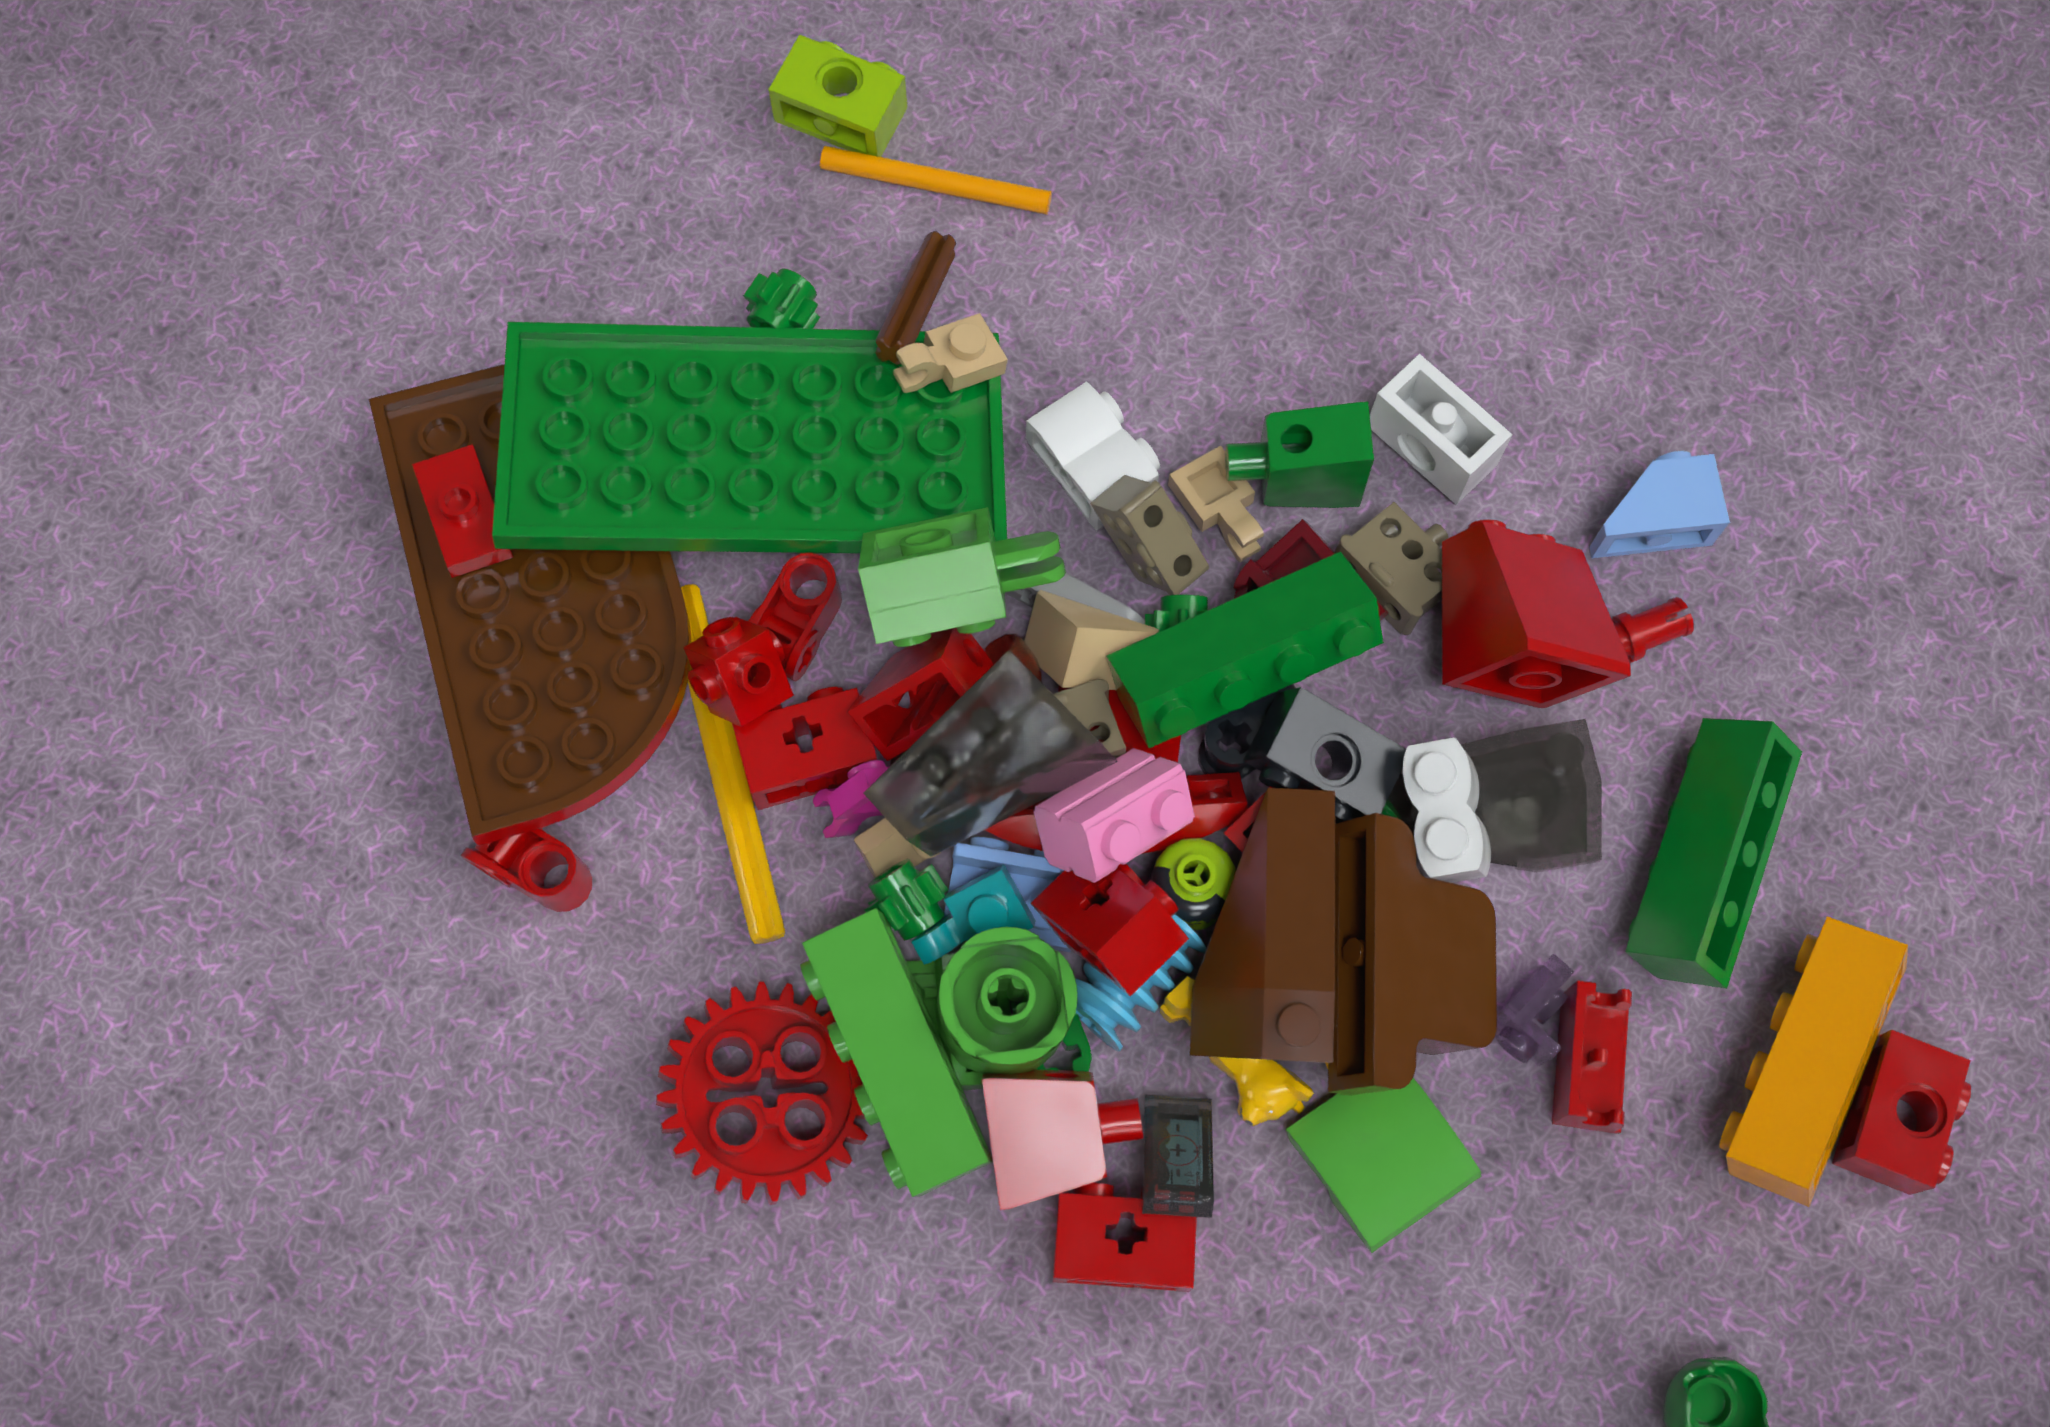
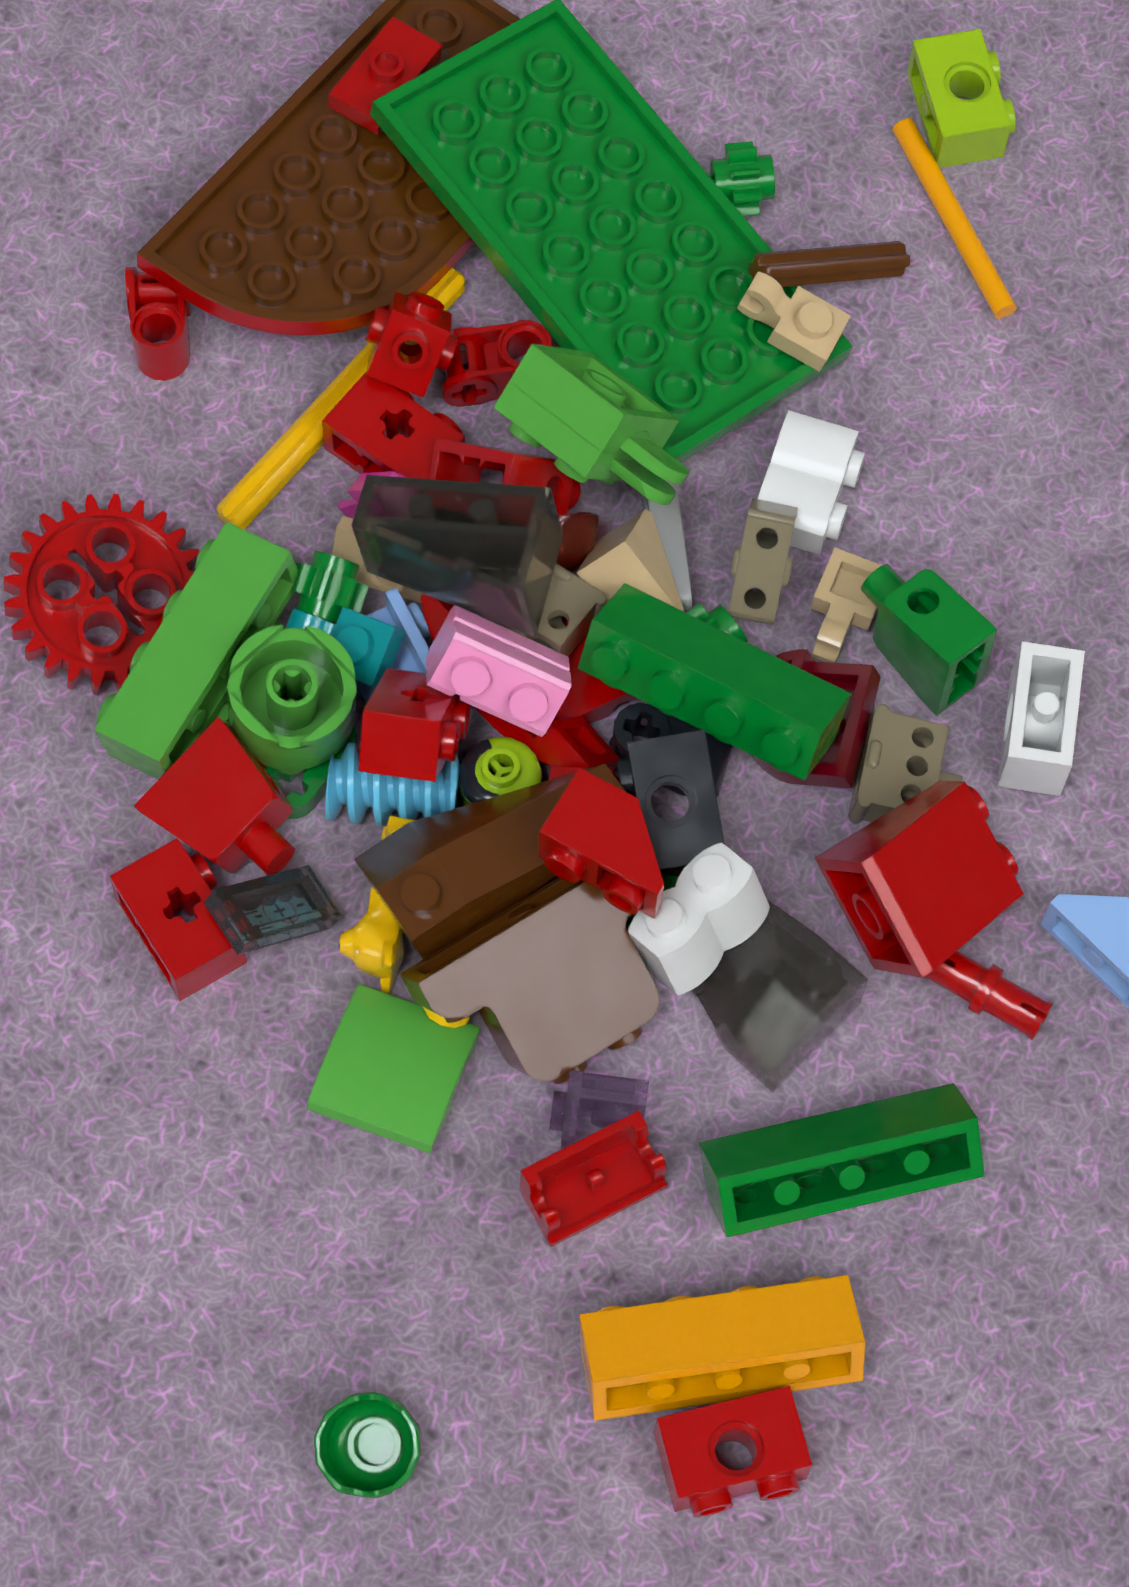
camera: 50 degrees right, 5 degrees down
(1366, 836) = (604, 841): none -> red slope

